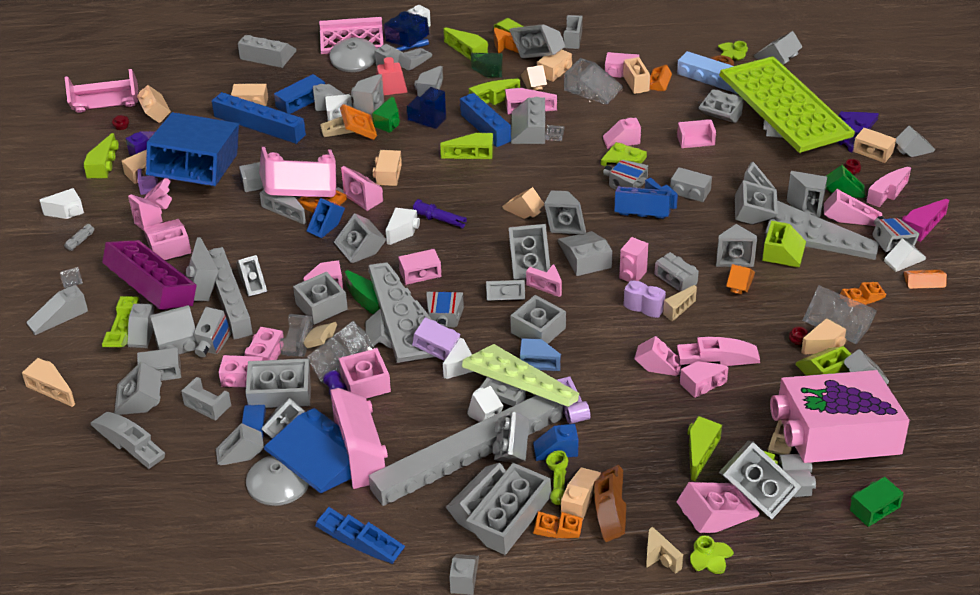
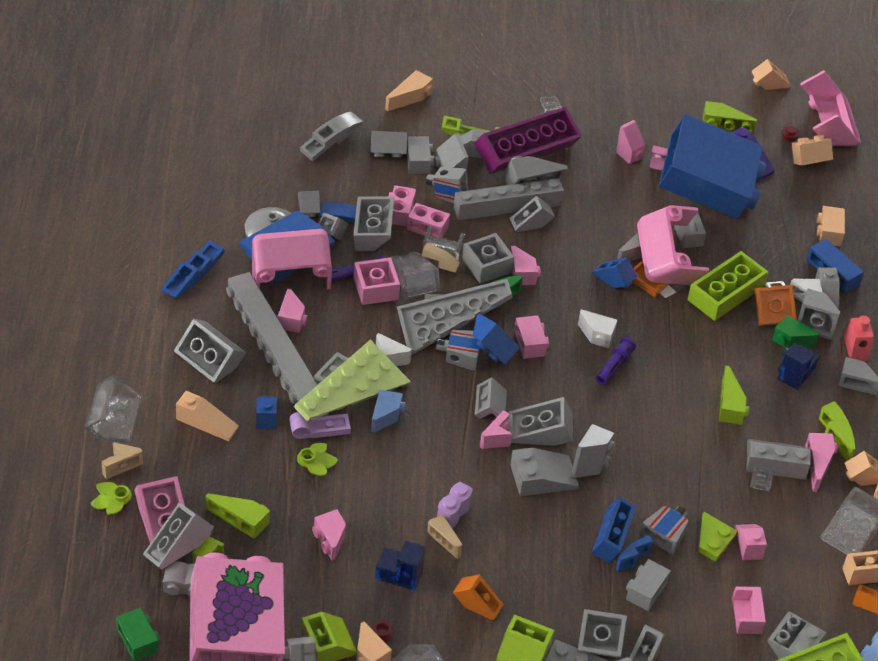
camera: 90 degrees right, 5 degrees up
(41, 131) = (770, 76): none -> light nougat slope
(59, 309) = (503, 96): light grey slope -> none
(62, 205) = (653, 95): white slope -> none
(79, 237) = (606, 107): light grey axle -> none
(168, 239) = (593, 159): bright pink slope -> none
(204, 401) = (372, 181): light grey panel -> none
(259, 117) = (789, 230): blue brick -> none
(346, 147) = (727, 285): none -> lime brick
(359, 239) = (579, 296): light grey slope -> none
(361, 189) = (657, 298): bright pink slope -> none
(387, 167) = (696, 326): light nougat brick -> none
(413, 439) = (292, 313): none -> bright pink slope
(435, 338) = (412, 329): lavender brick -> none
(437, 280) = (494, 340): none -> blue slope
(463, 574) = (136, 328): light grey slope -> none
(484, 404) = (314, 353): white slope -> none
(485, 119) = (780, 414): blue brick -> none
(509, 507) = (191, 360): light grey slope -> none
(511, 438) = (263, 363): light grey slope -> none
(525, 204) = (624, 429): light nougat slope -> none
(538, 320) = (428, 412): light grey brick -> none
(558, 527) = (171, 396): orange slope -> none
(559, 474) = (242, 404): lime piece -> none
(593, 572) = (113, 410): none -> clear slope
(609, 503) = (176, 429): dark orange slope -> none
(610, 402) = (316, 459): none -> lime plate
(633, 260) = (507, 499): bright pink brick -> none
(657, 357) = (364, 503): bright pink slope -> none
(676, 272) = (495, 542): light grey brick -> none
(721, 349) = (360, 551): bright pink slope -> none
(729, 316) = (401, 567): none -> clear blue brick
(736, 247) = (522, 593): light grey slope -> none

